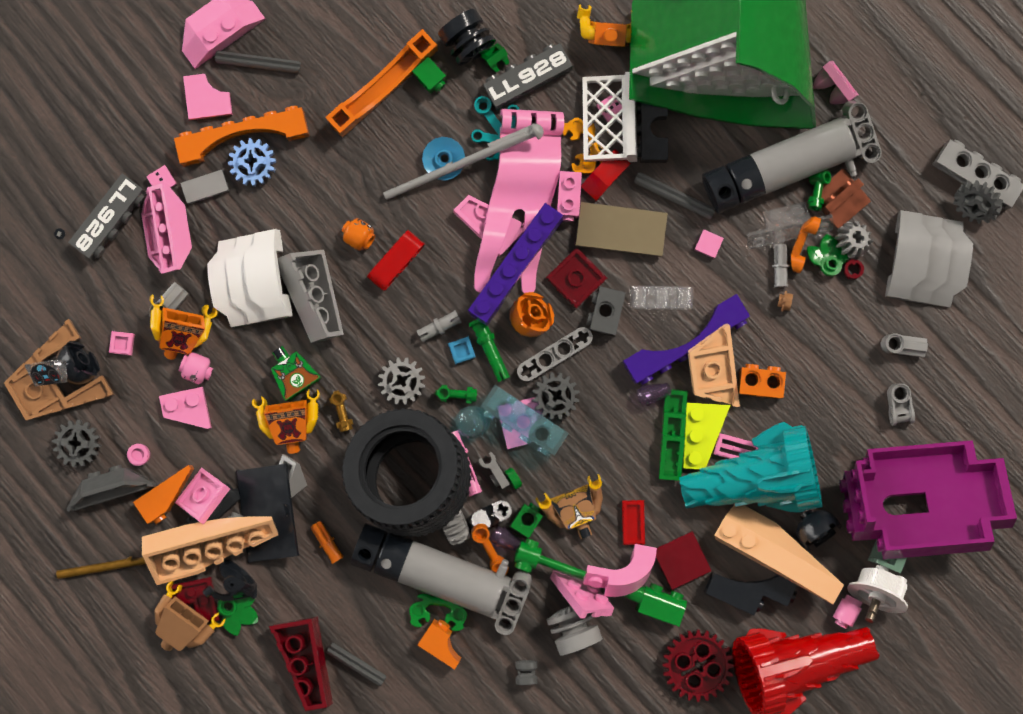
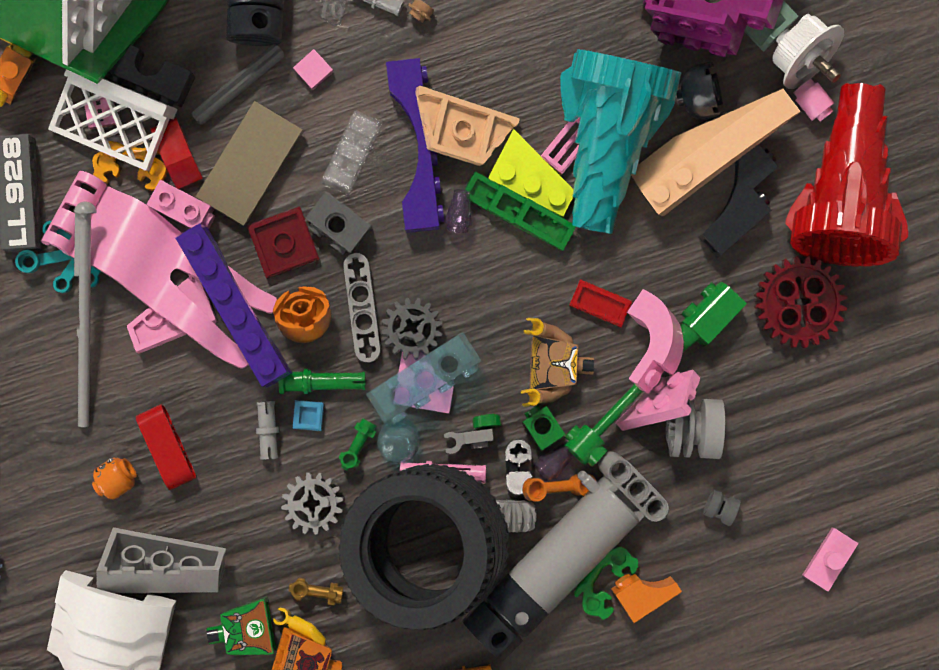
camera: 70 degrees left, 0 degrees up
(438, 147) = (54, 337): dark azure dish -> none
(682, 560) = (670, 265): dark red tile -> none
(761, 387) = (509, 83): orange brick -> none

